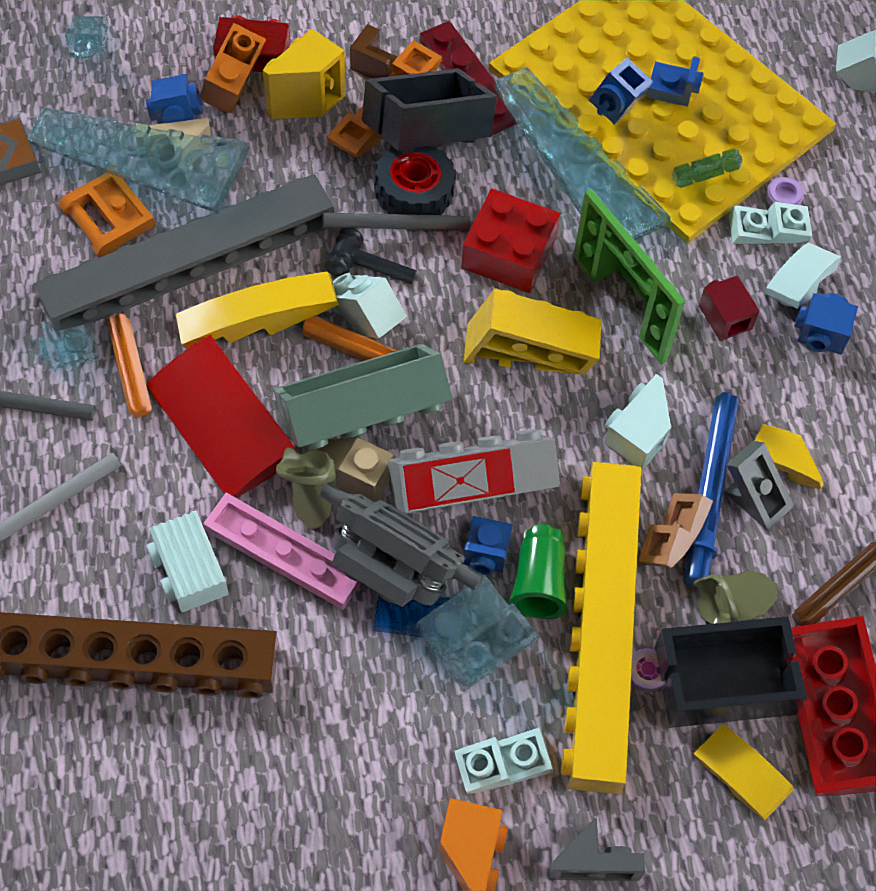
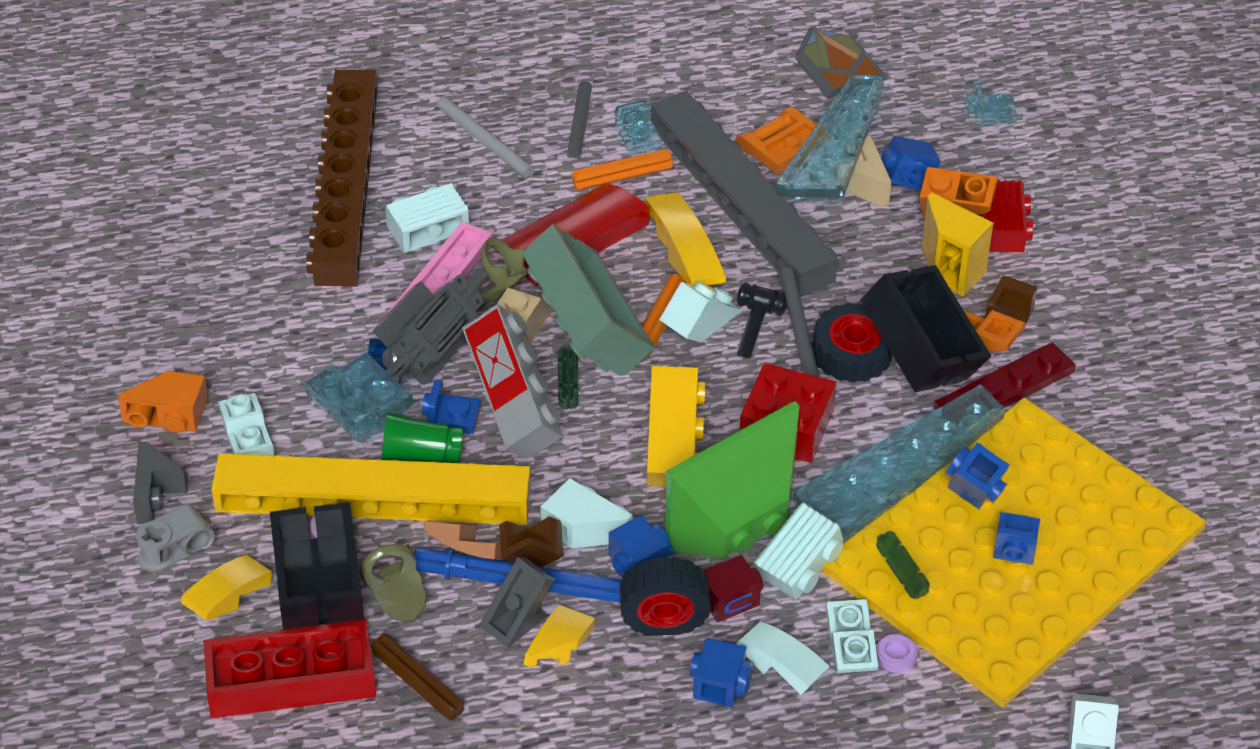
camera: 90 degrees right, 15 degrees down
(439, 433) = (567, 378): none -> clear green axle
(672, 828) = (175, 535): none -> light grey piece
(685, 466) = (539, 543): none -> reddish brown panel
(686, 377) = (637, 542): none -> blue brick
(690, 246) = (800, 552): none -> light aqua brick
(763, 351) = (664, 597): none -> black wheel

